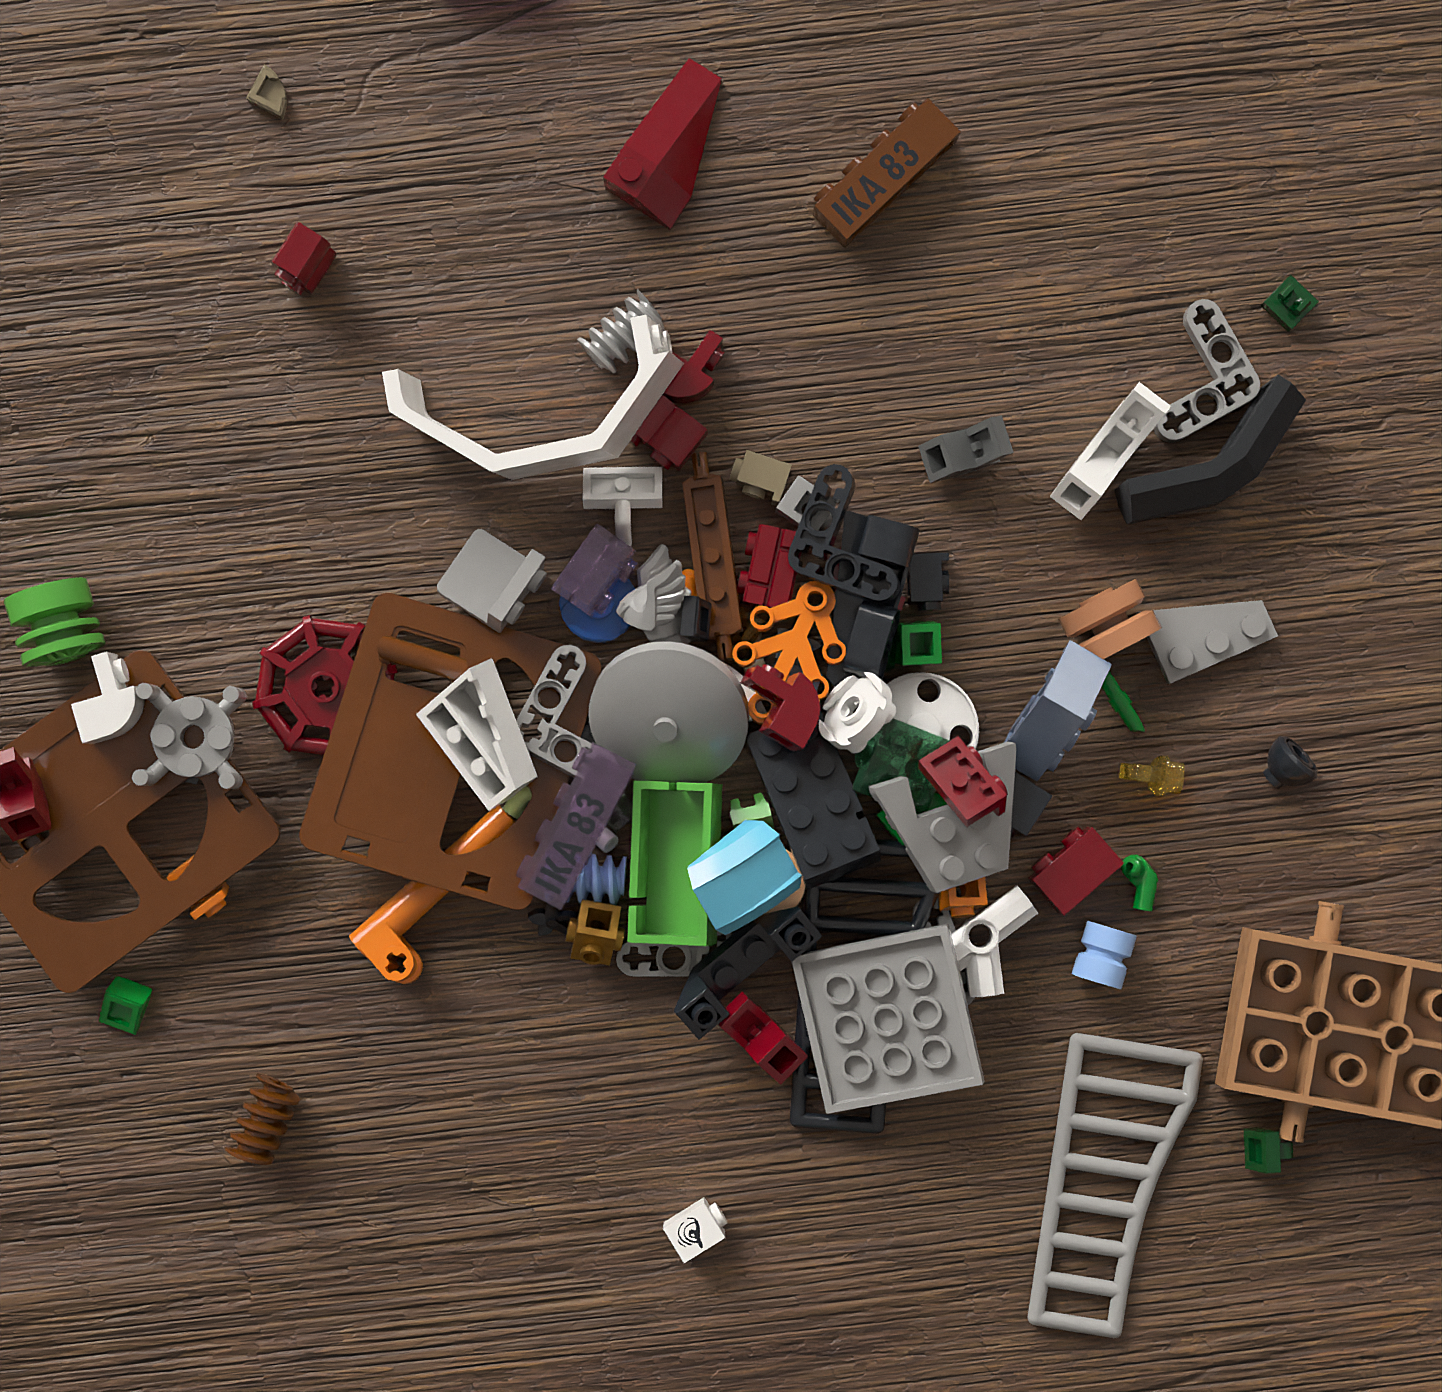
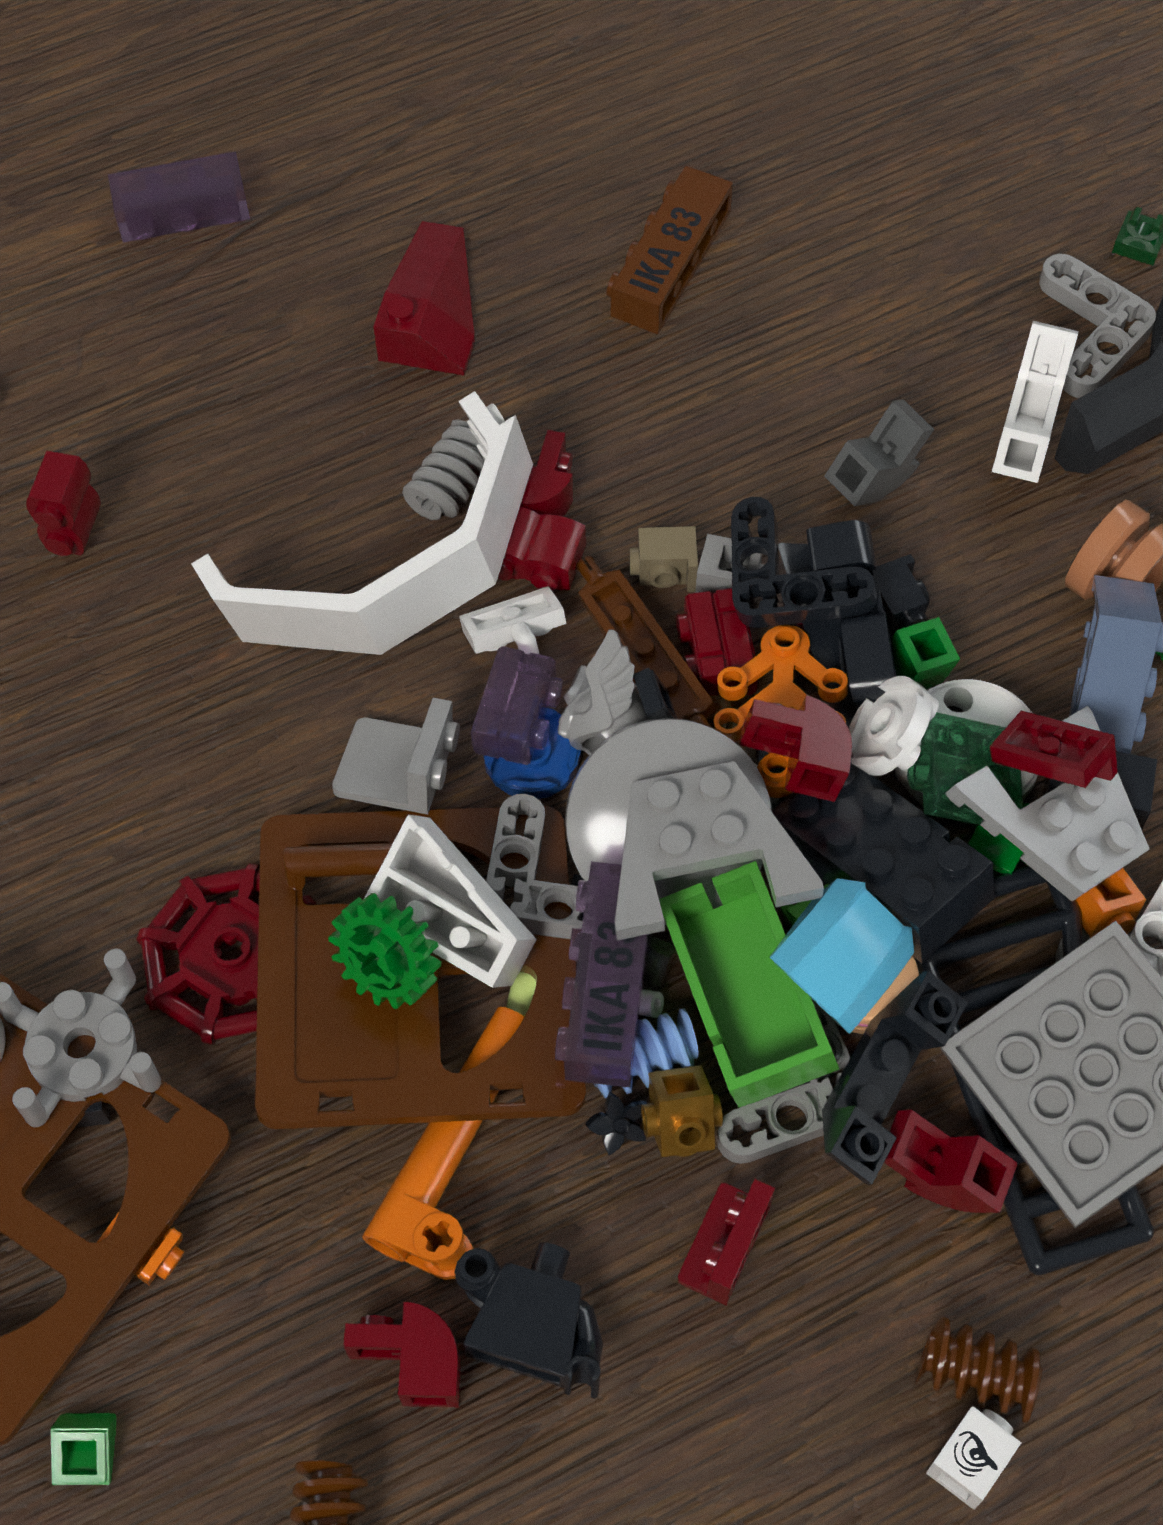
camera: 15 degrees left, 25 degrees down
(365, 1032) = (425, 1350): none -> dark red brick
(422, 756) = (384, 950): none -> green gear
(443, 1037) = (531, 1318): none -> black torso
(591, 1029) = (726, 1240): none -> dark red bracket
(679, 745) = (696, 825): none -> light grey wing
(724, 1176) = (981, 1367): none -> reddish brown piece

